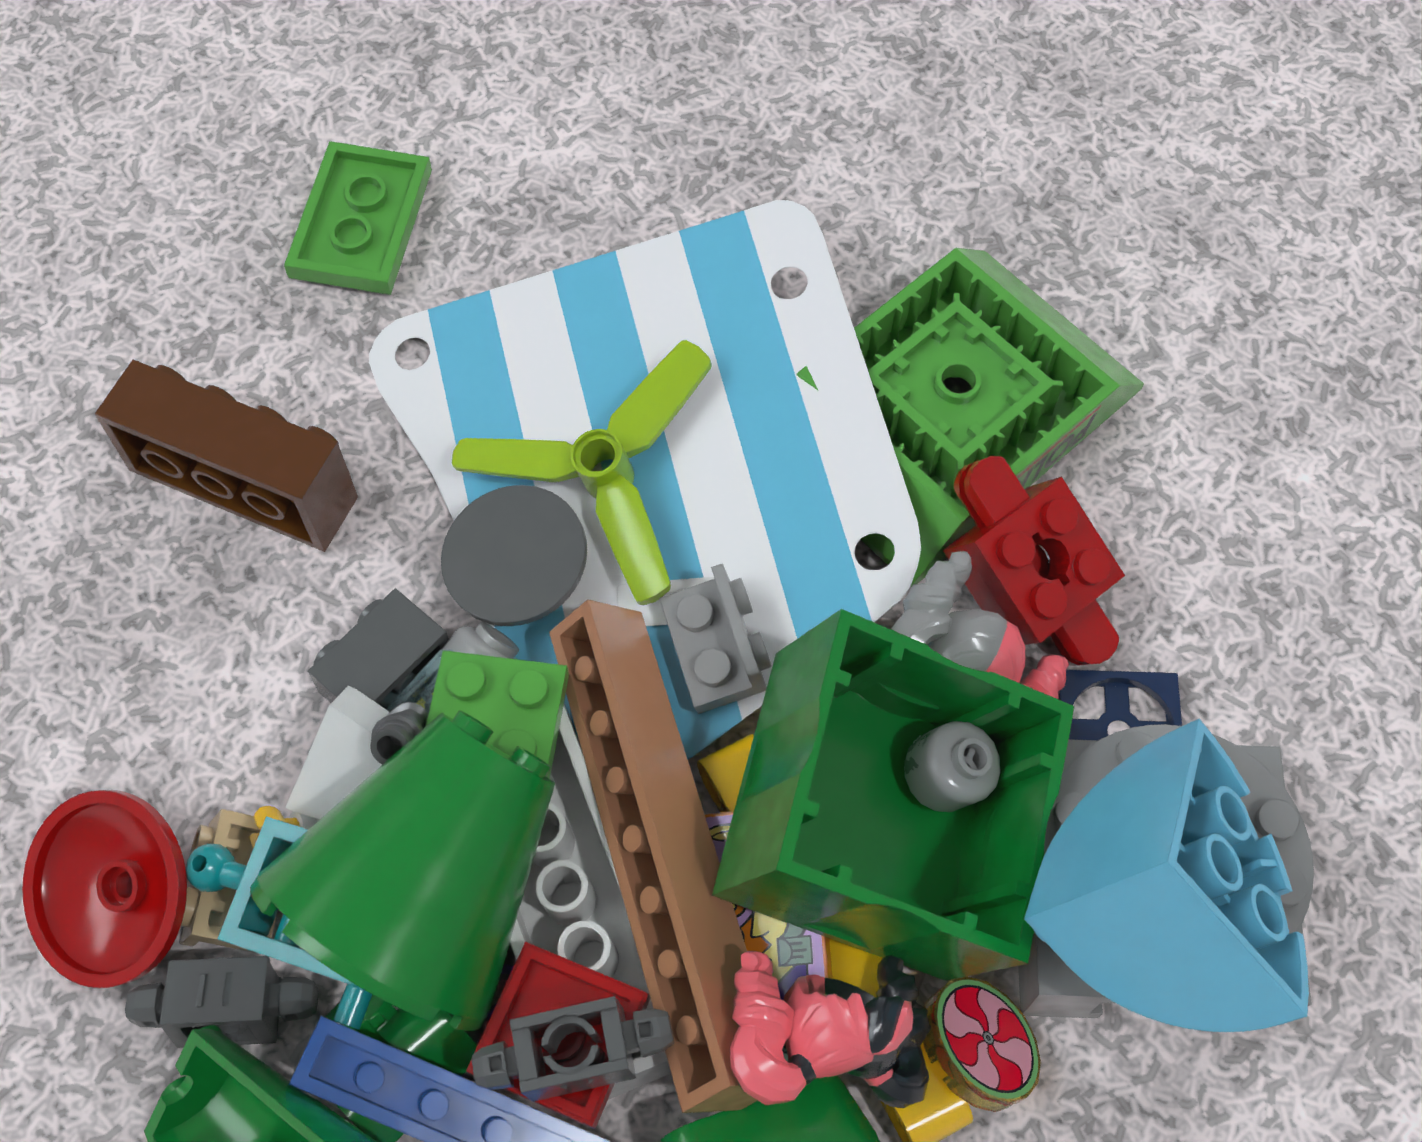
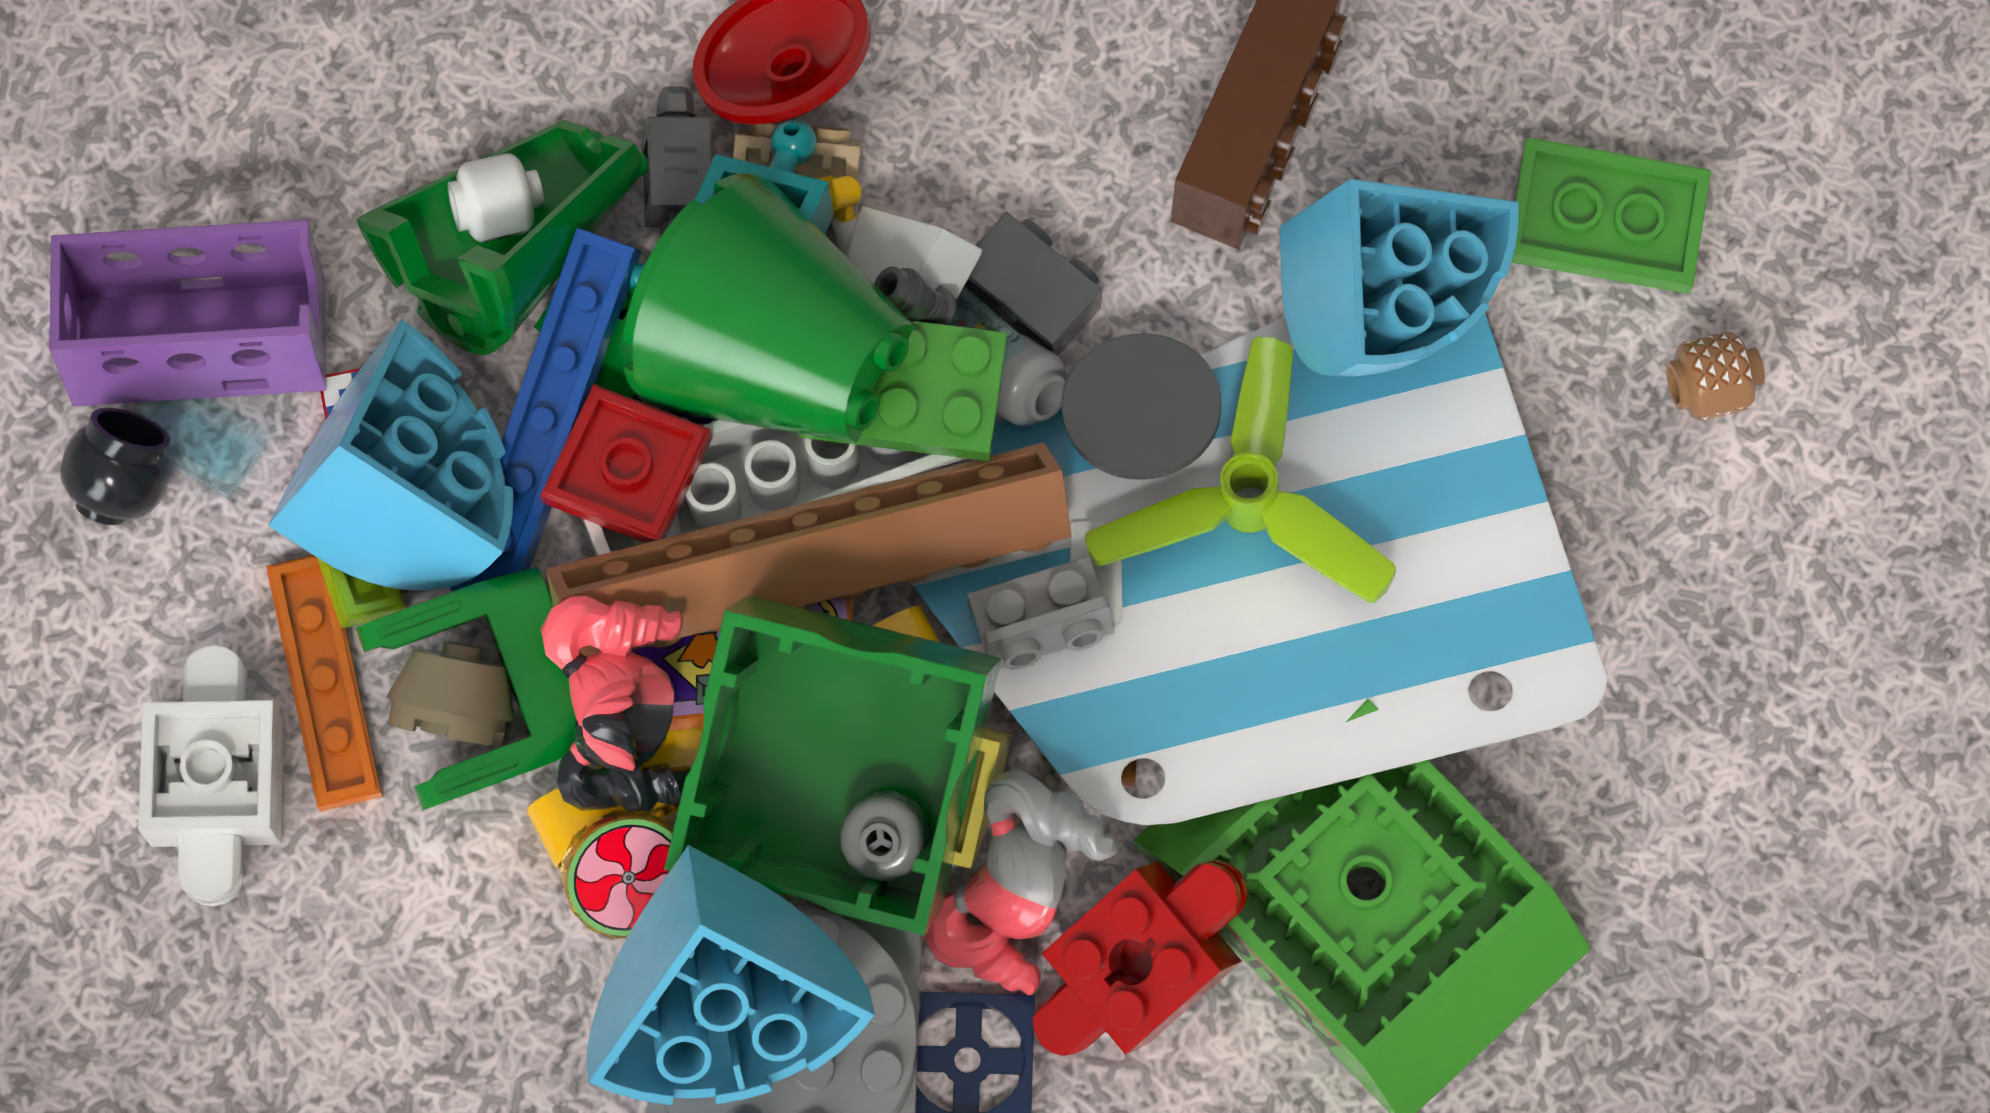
camera: 90 degrees right, 10 degrees up
(412, 352) = (1390, 273): none -> medium azure brick
(499, 1065) = (594, 429): dark grey piece -> none
(507, 146) = (1714, 376): none -> medium nougat head

